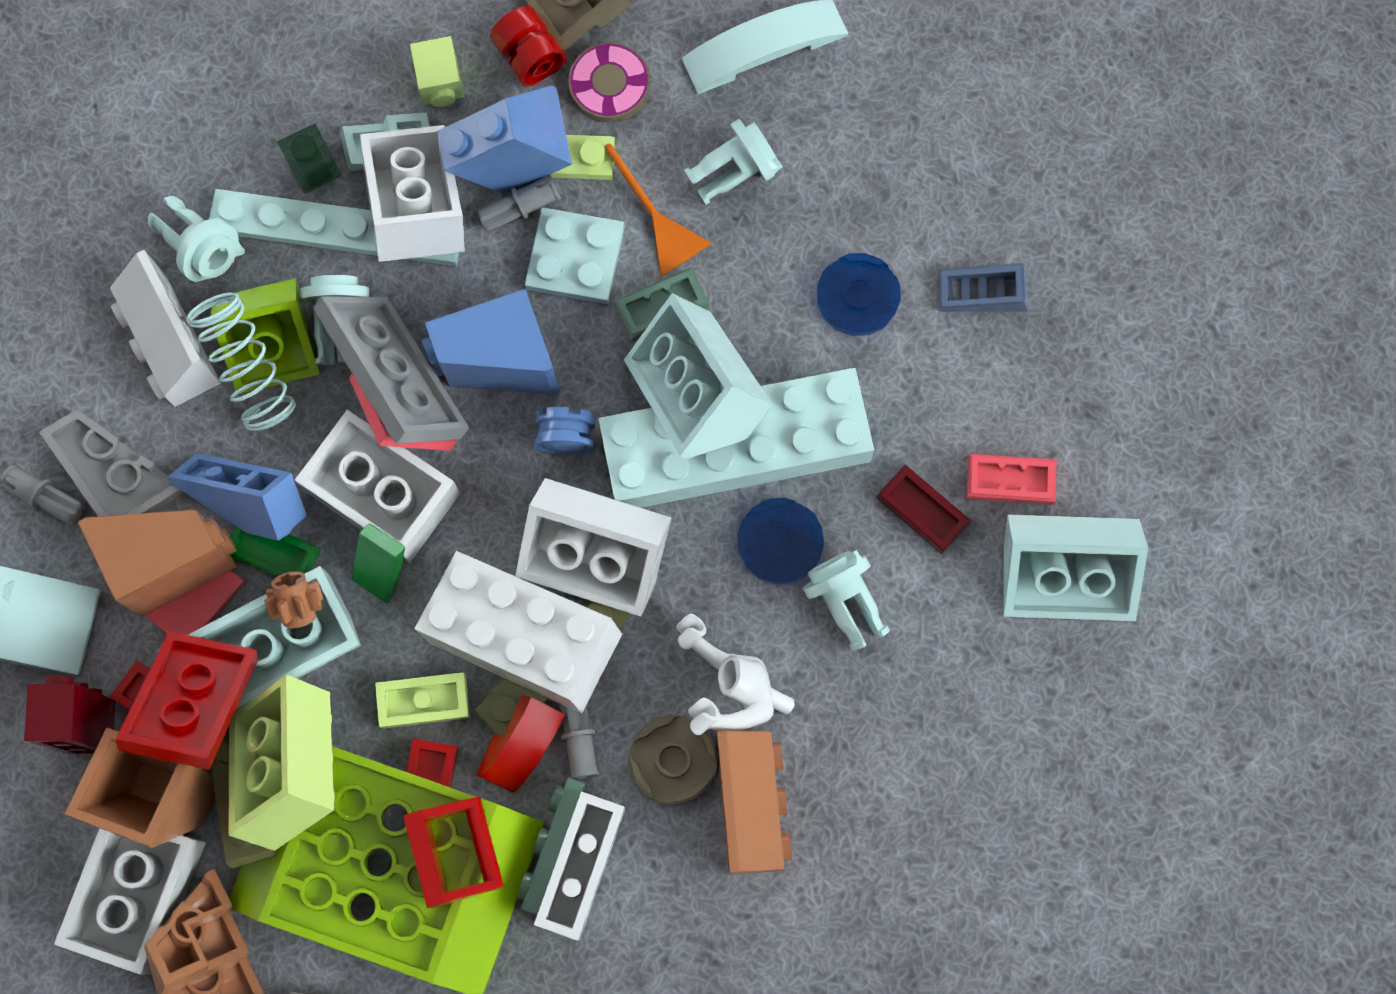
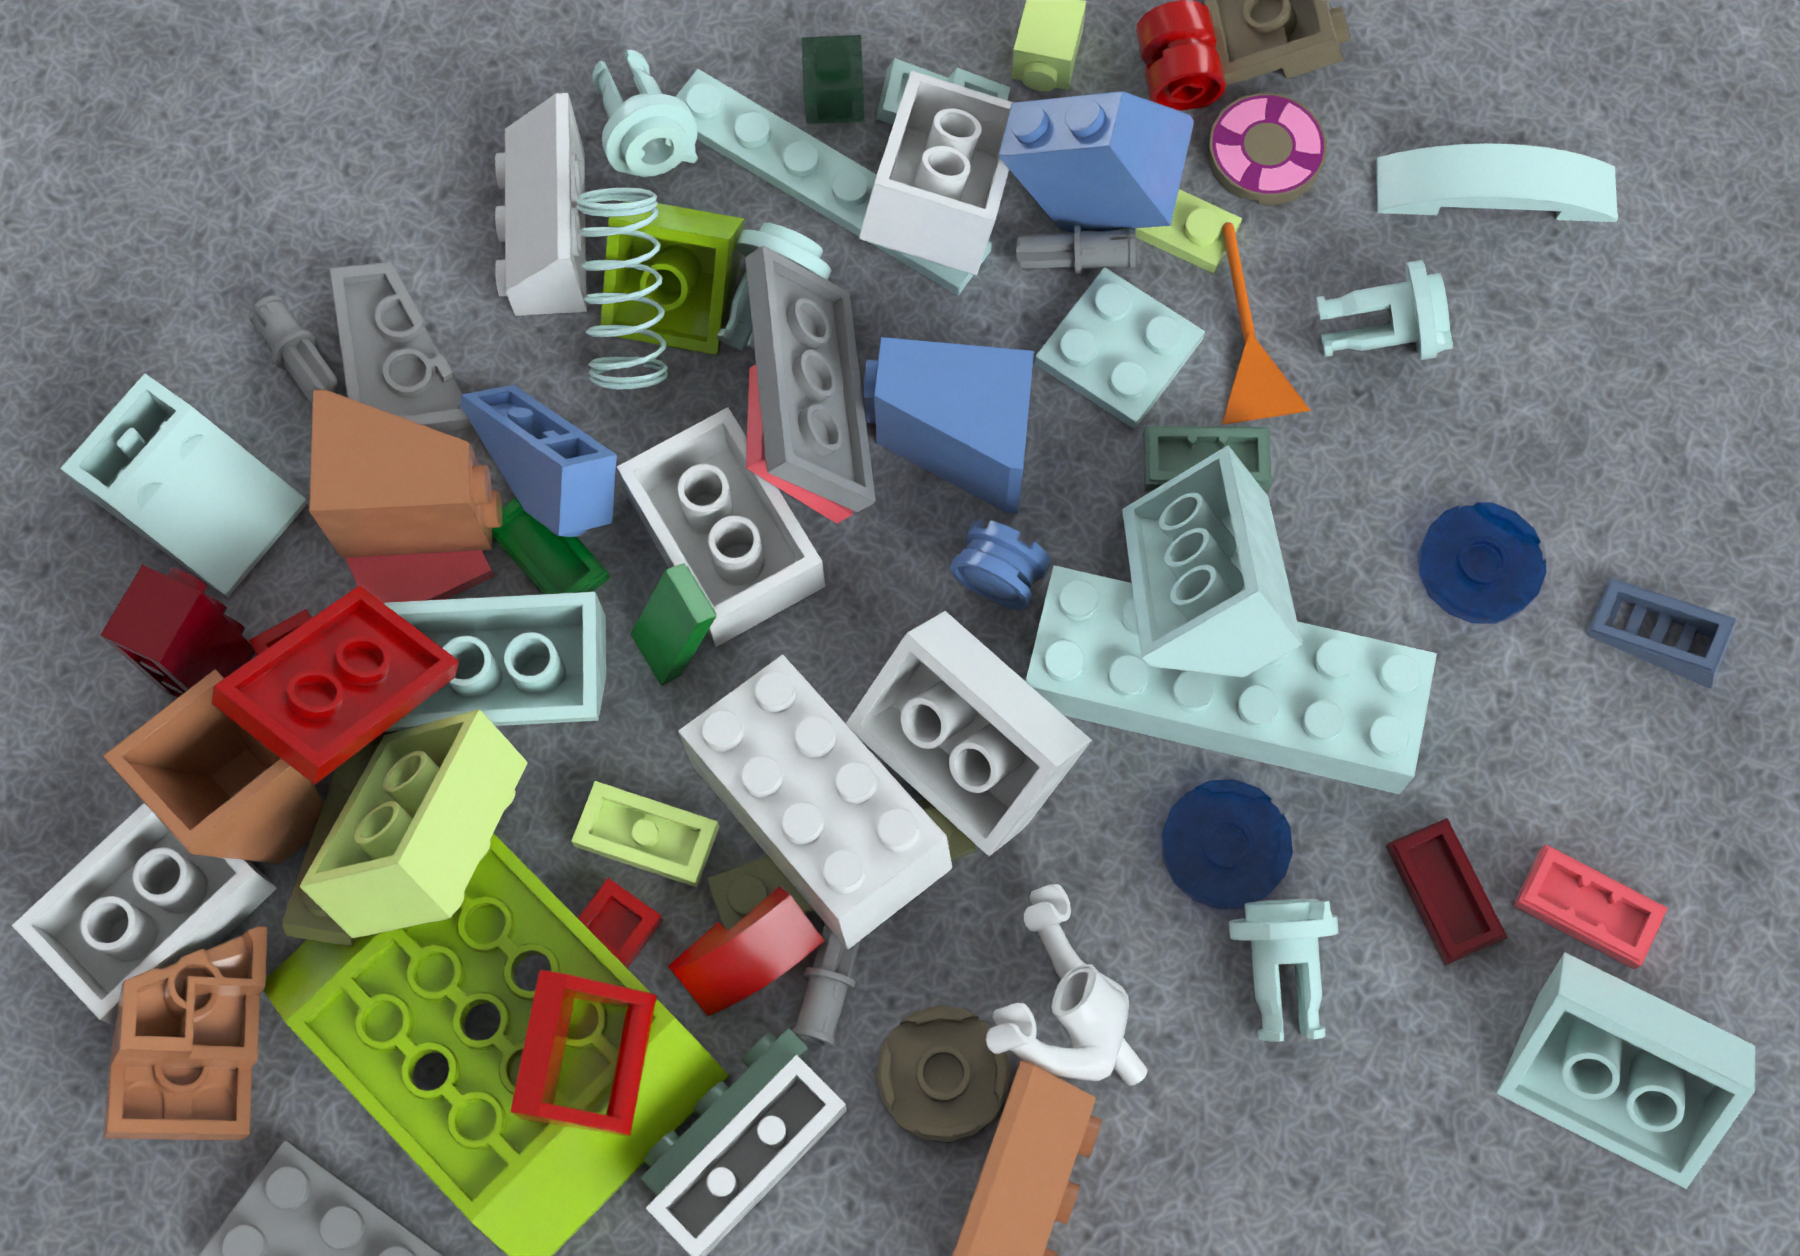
camera: 25 degrees right, 5 degrees down
(293, 599) = (537, 617): nougat gear -> none

